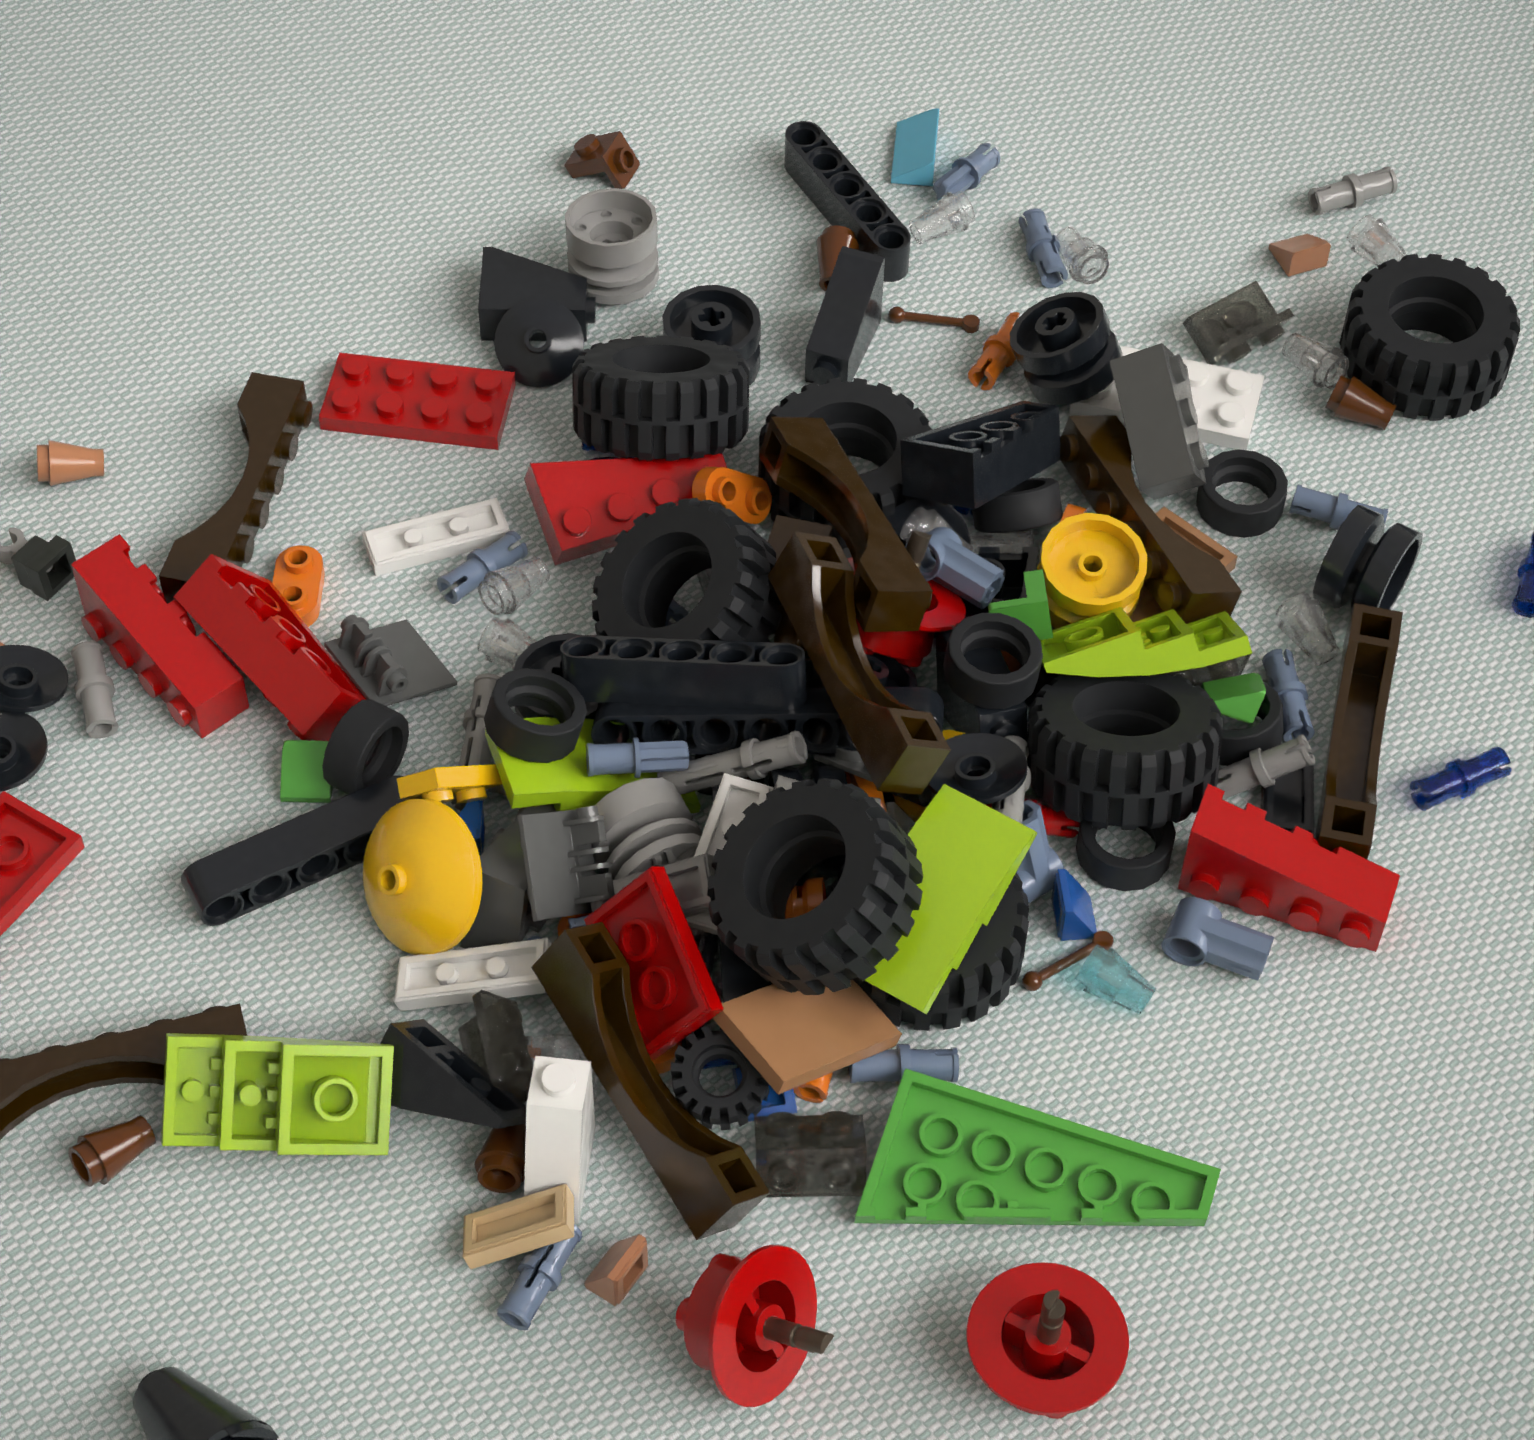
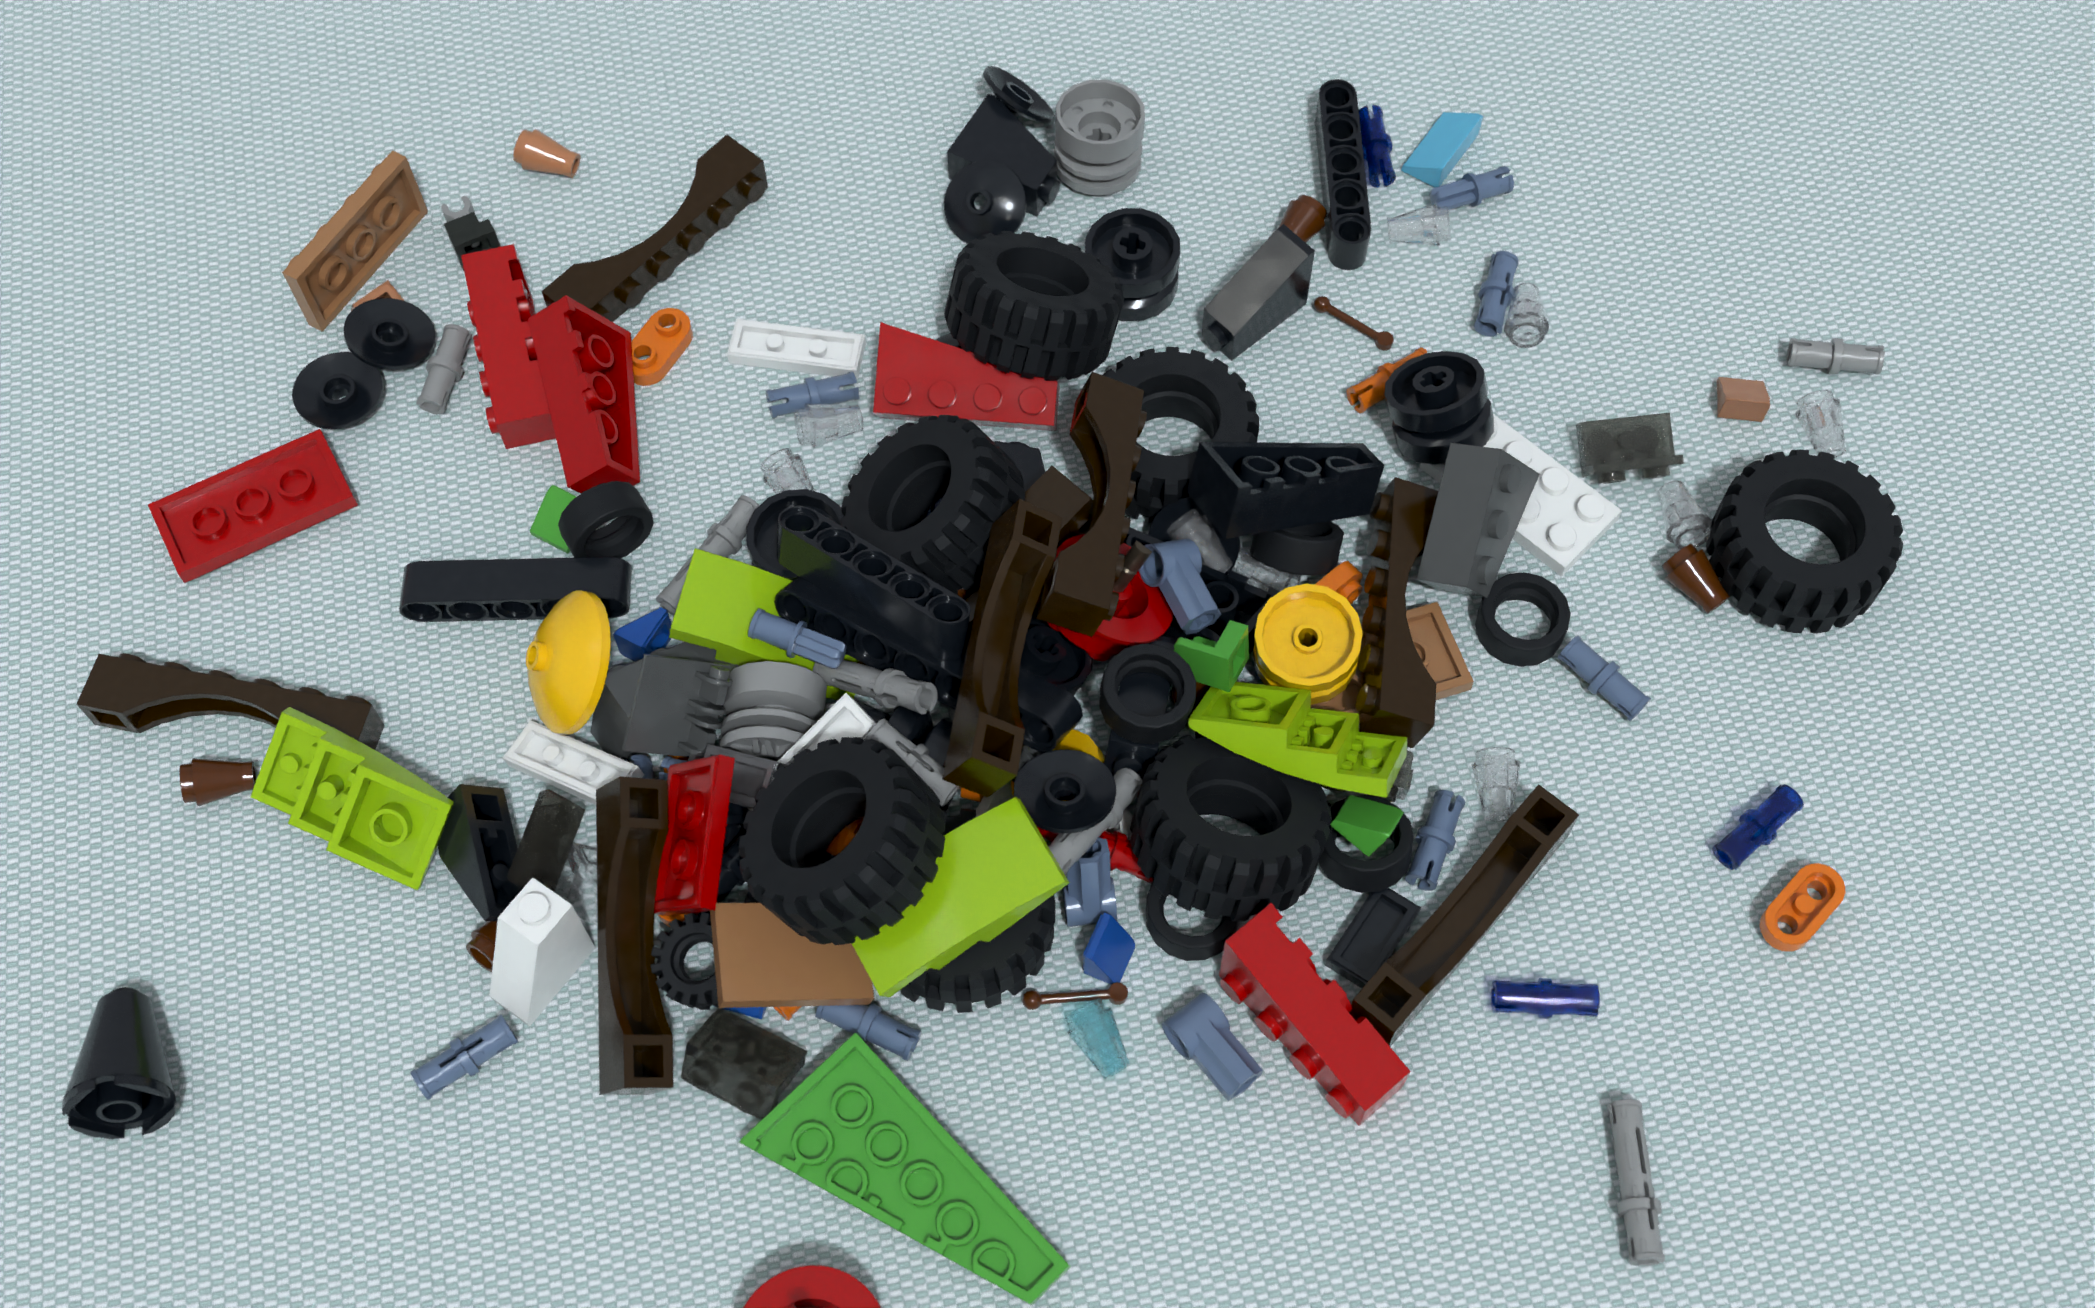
camera: 30 degrees right, 10 degrees up
(388, 661) = (681, 449): dark grey hinge -> none
(418, 401) = (859, 215): red plate -> none
(447, 783) = (618, 588): yellow wing -> none
(507, 243) = (1017, 95): none -> black dish
(518, 1226) = (468, 1009): tan tile -> none
(527, 739) = (744, 534): black tyre -> none
(605, 154) = (1157, 45): reddish brown bracket -> none
(619, 1269) = (528, 1087): nougat slope -> none
(740, 492) = (1046, 427): orange plate -> none
(753, 1322) = (583, 1198): red piece -> none
(864, 166) = (1376, 146): none -> clear blue pin
(1265, 766) = (1357, 902): light grey pin -> none
(1367, 562) = (1583, 748): black wheel -> none

